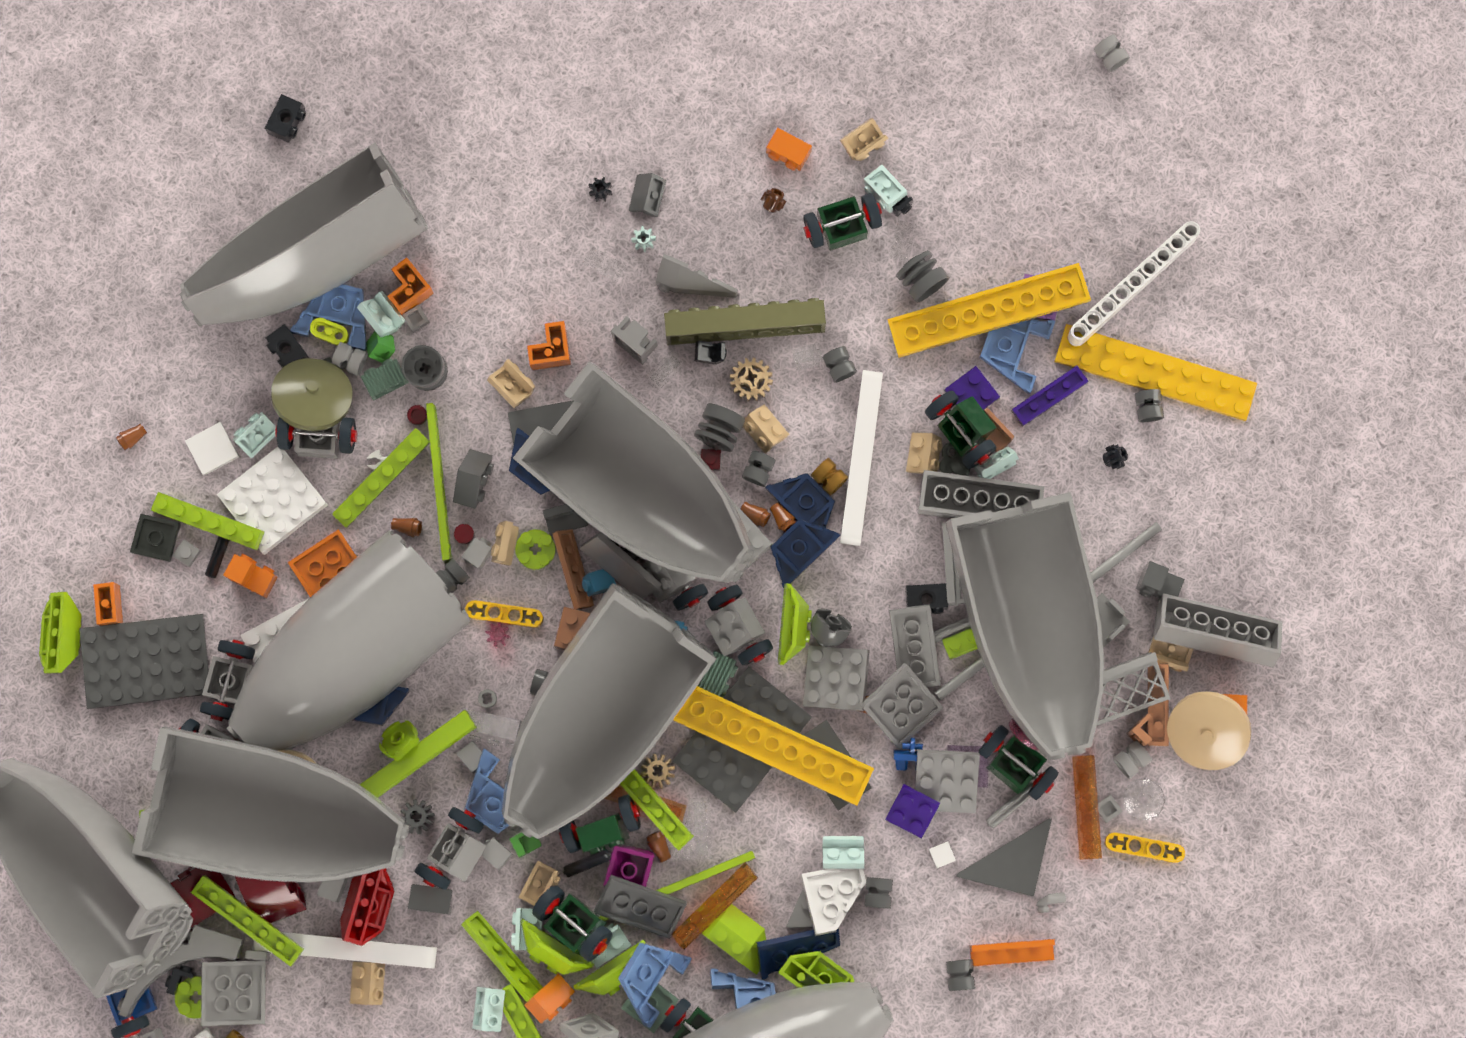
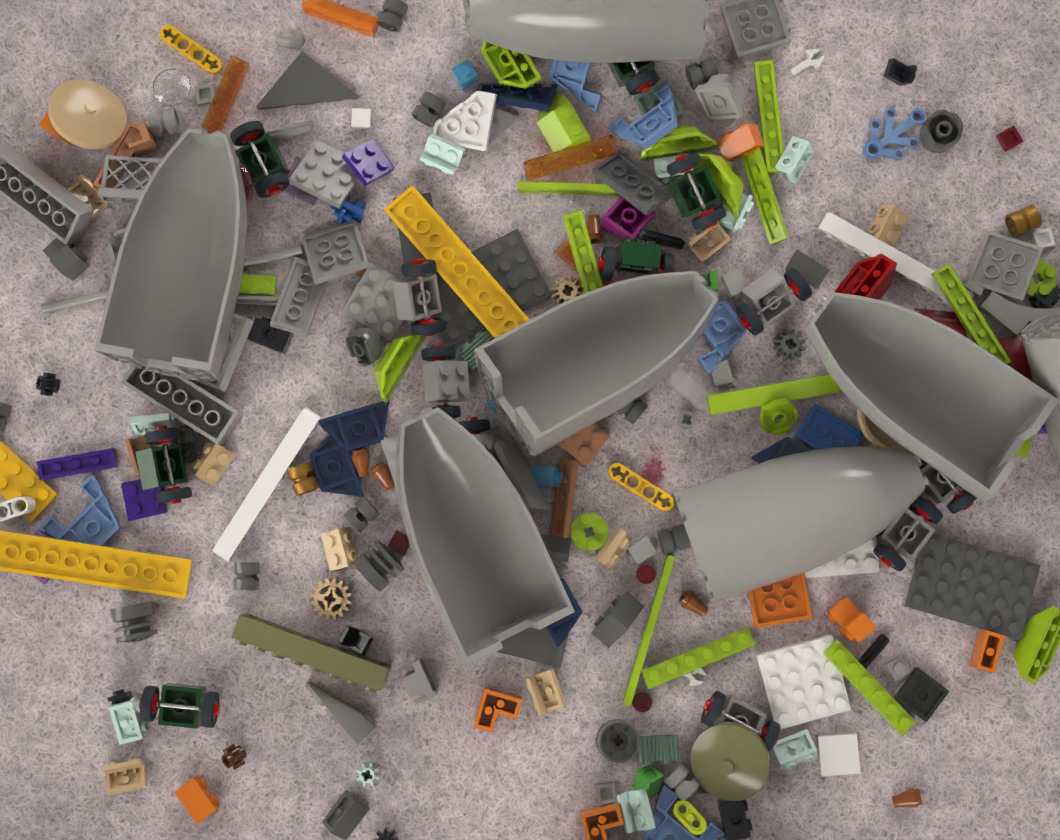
camera: 160 degrees left, 5 degrees up
(345, 747) = (825, 430): none -> blue plate
(797, 694) = (419, 297): none -> brick
(858, 945) = (465, 74): none -> dark azure brick

